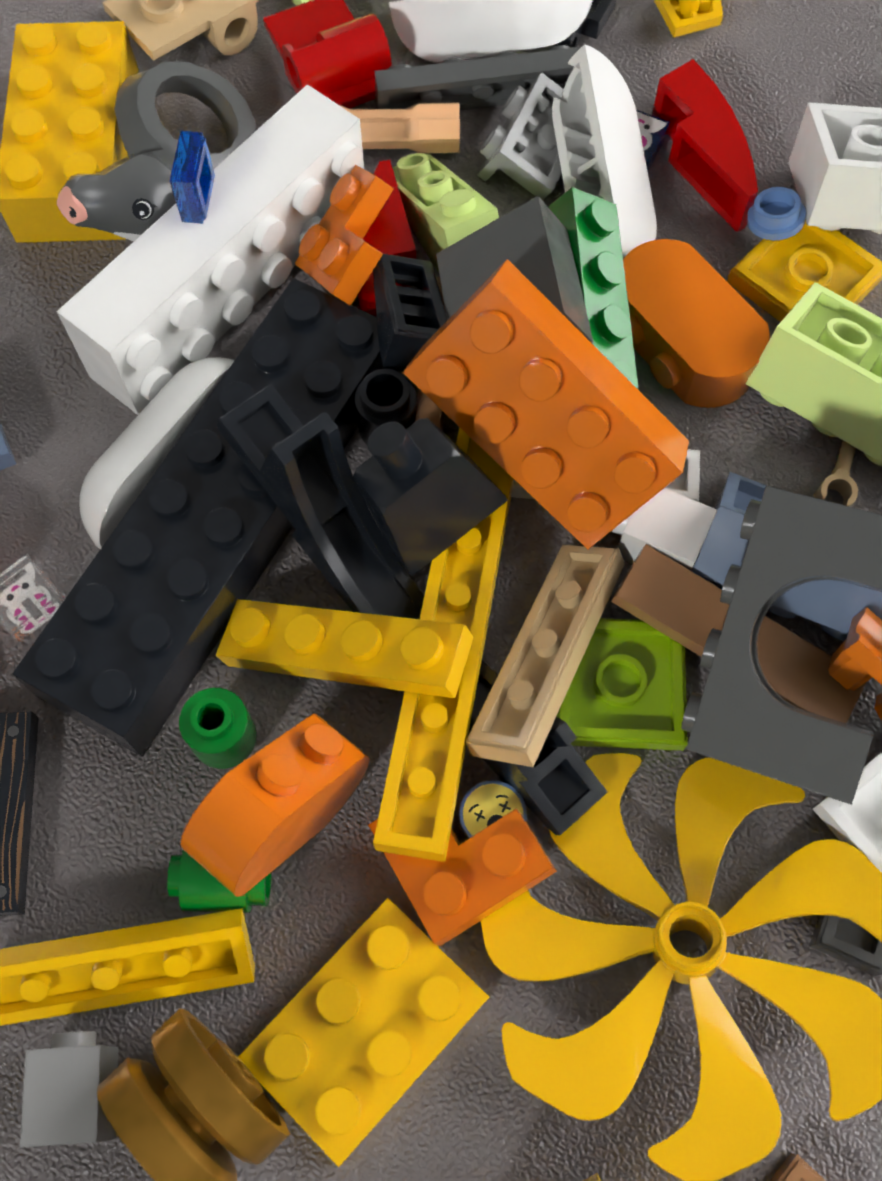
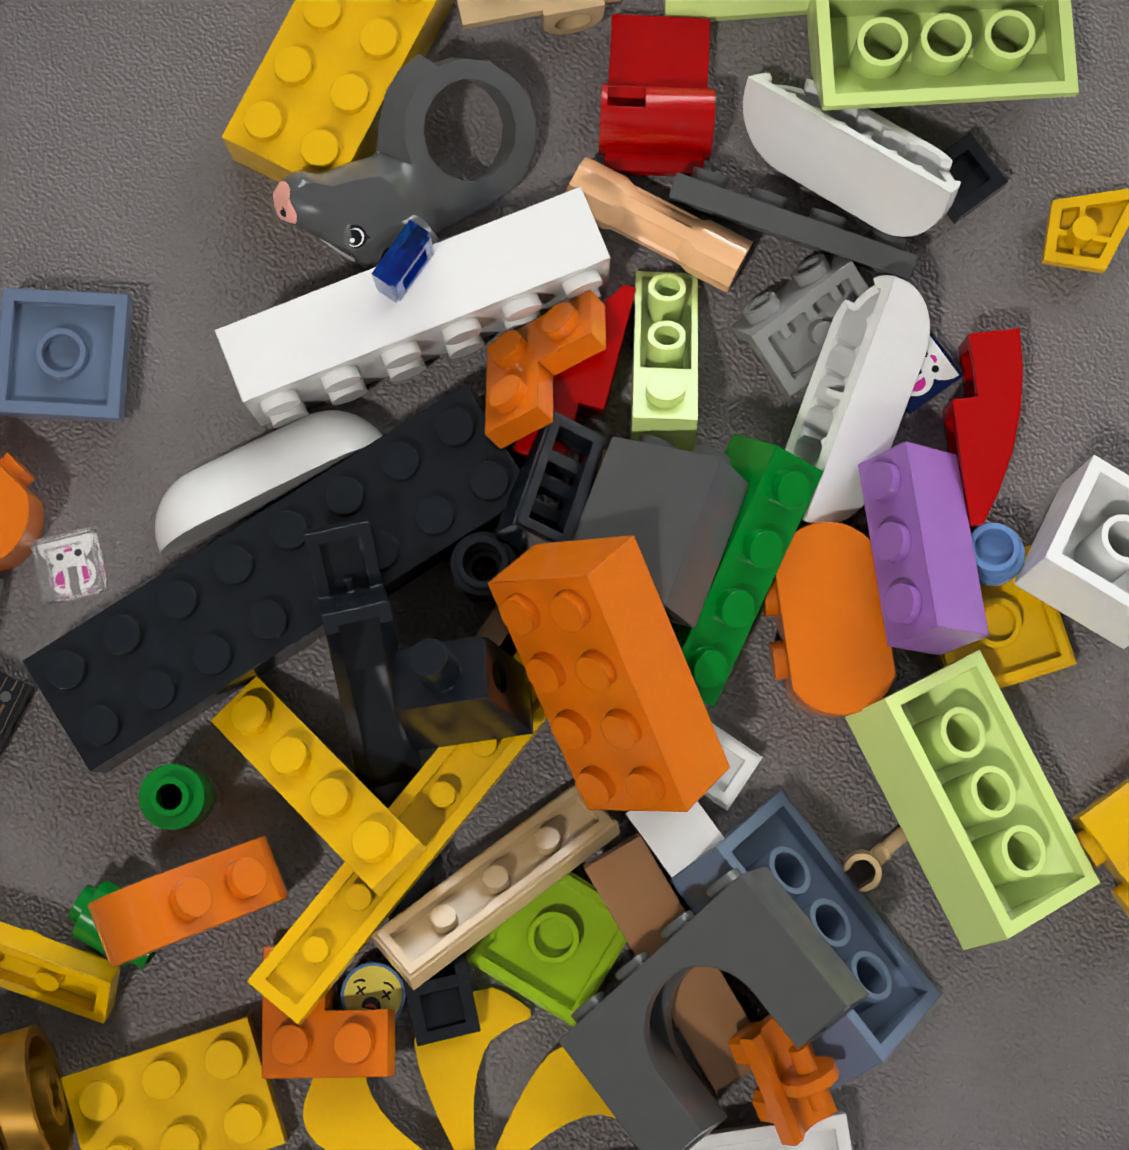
camera: 30 degrees right, 15 degrees up
(728, 227) = (922, 549): none -> medium lavender brick

